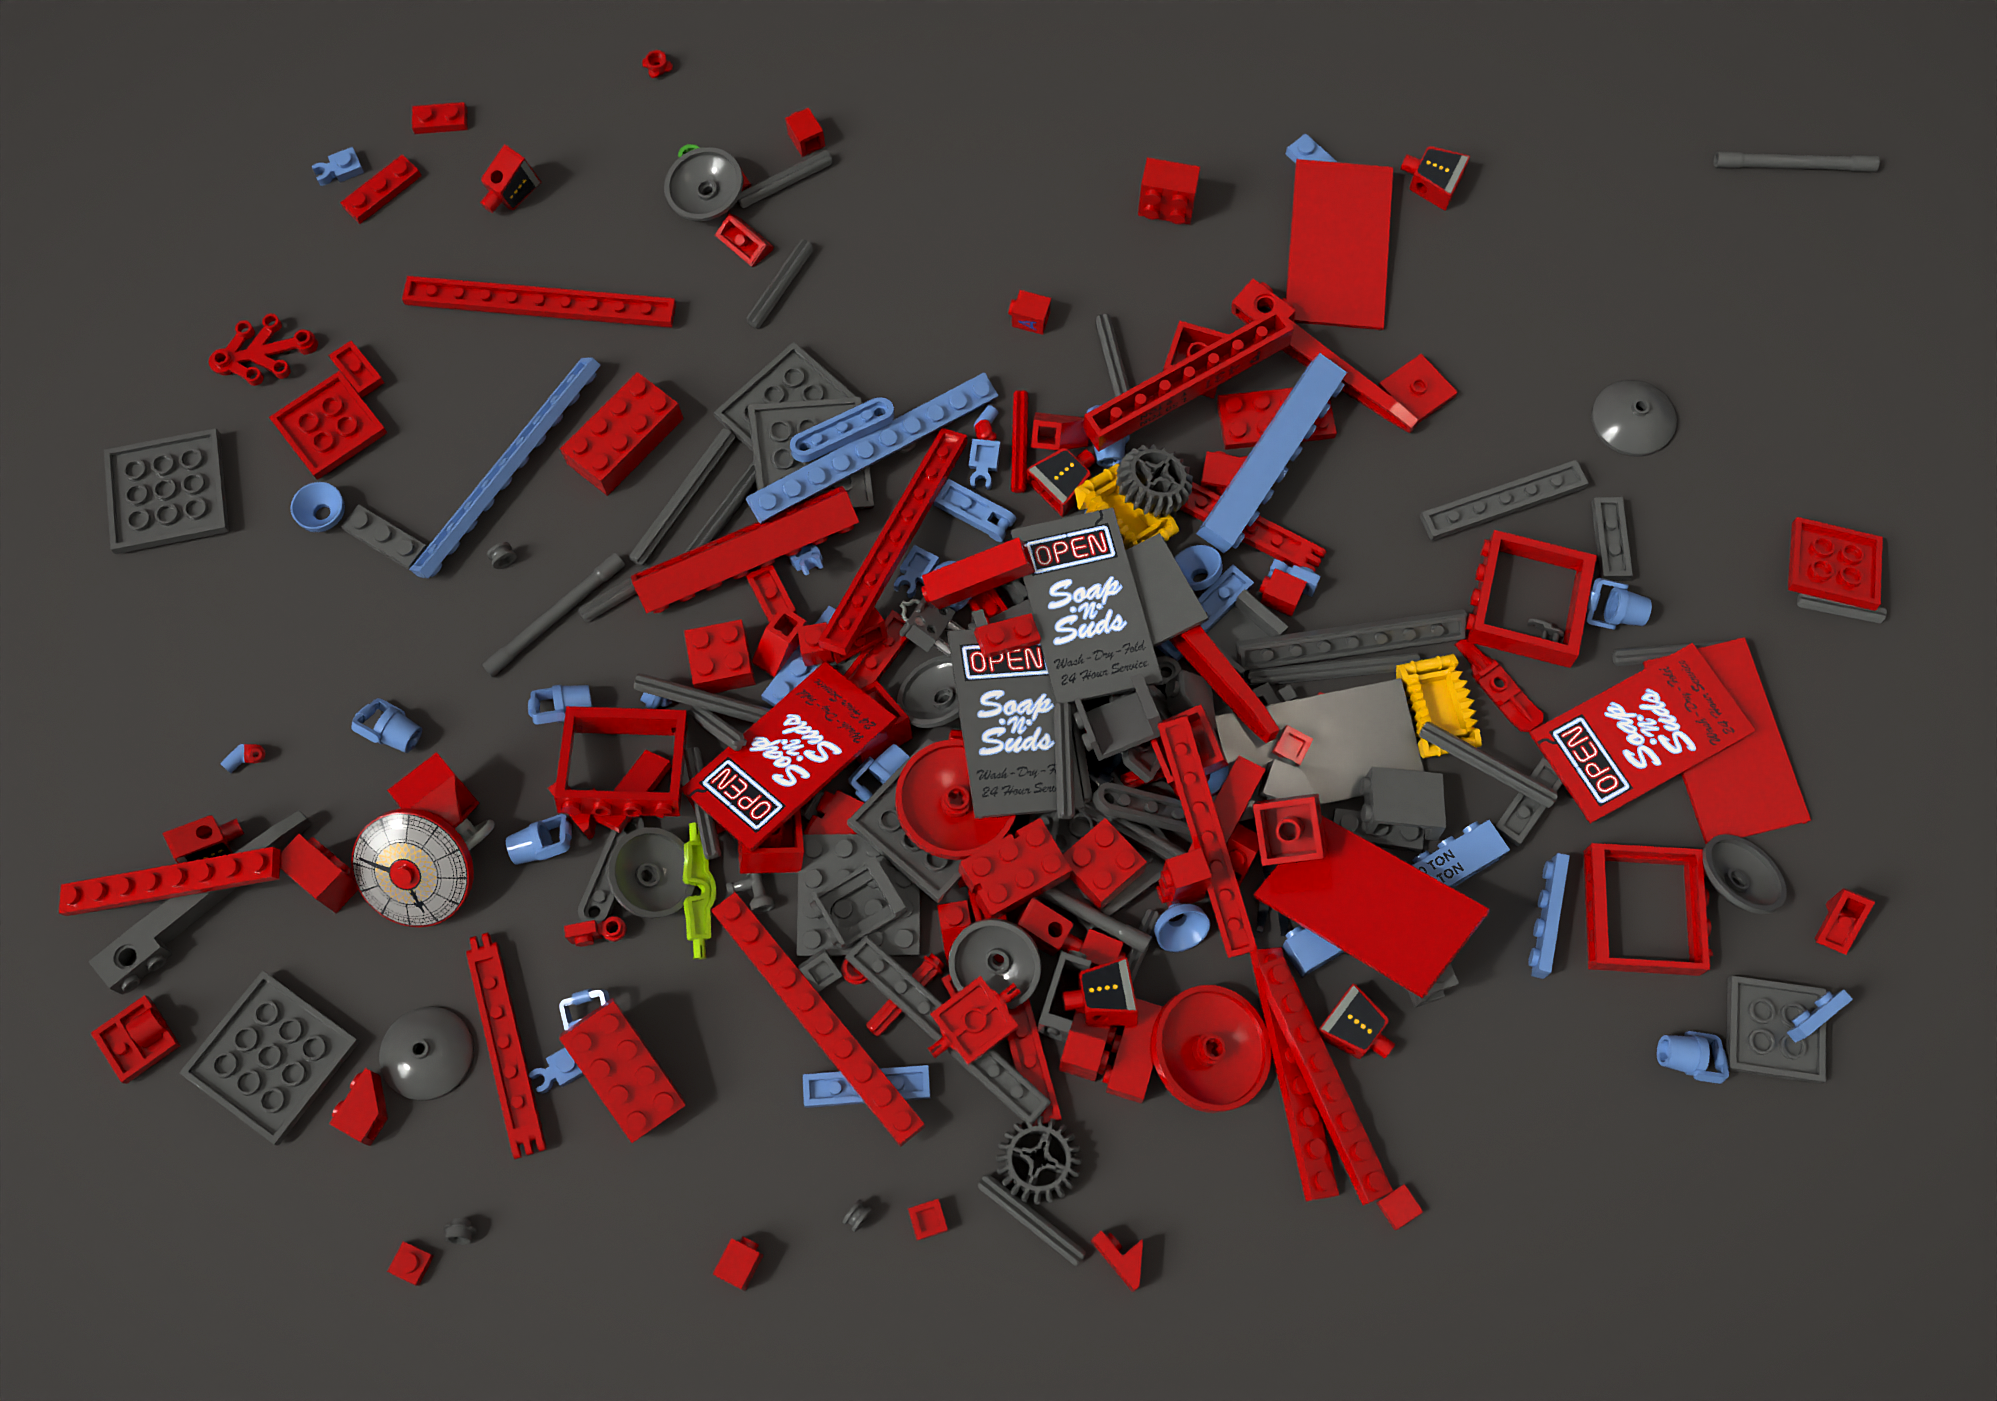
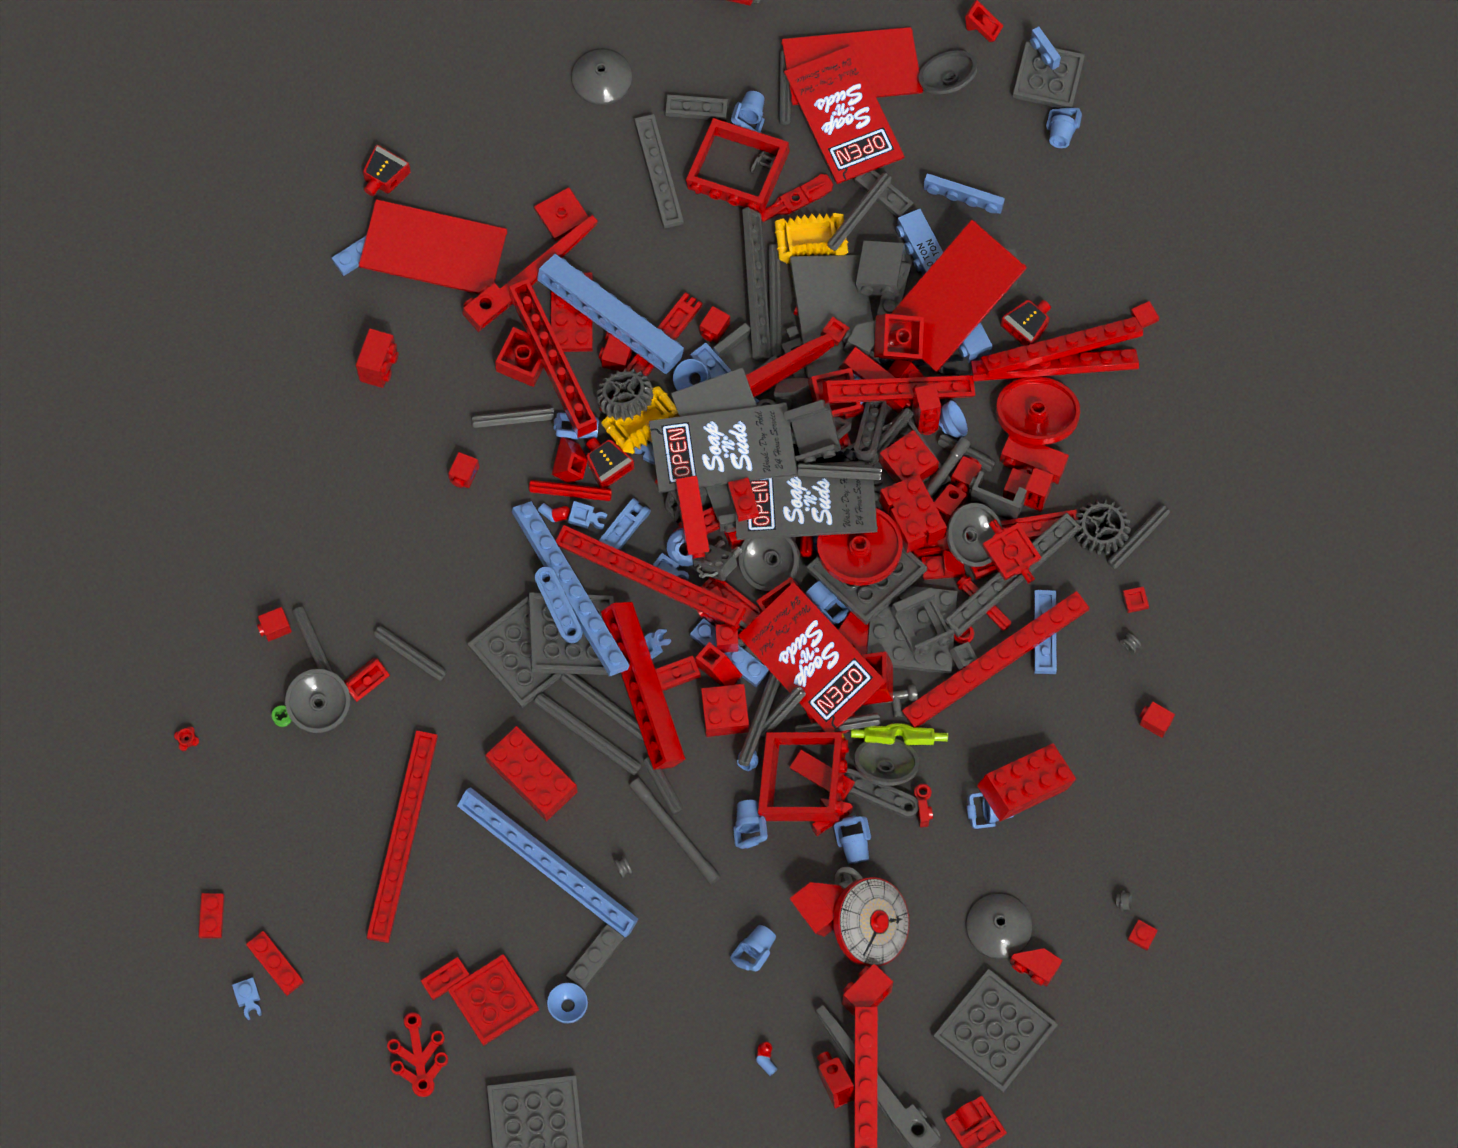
camera: 85 degrees left, 0 degrees up
(505, 1046) = (998, 869): red hinge -> none
(508, 180) = (284, 848): red torso -> none
(561, 1069) = (1016, 831): medium blue plate -> none
(1105, 995) = (1001, 467): torso -> none
(1126, 1266) = (1171, 479): red slope -> none
(1300, 572) = (702, 311): medium blue plate -> none
(1596, 907) = (961, 164): red window -> none

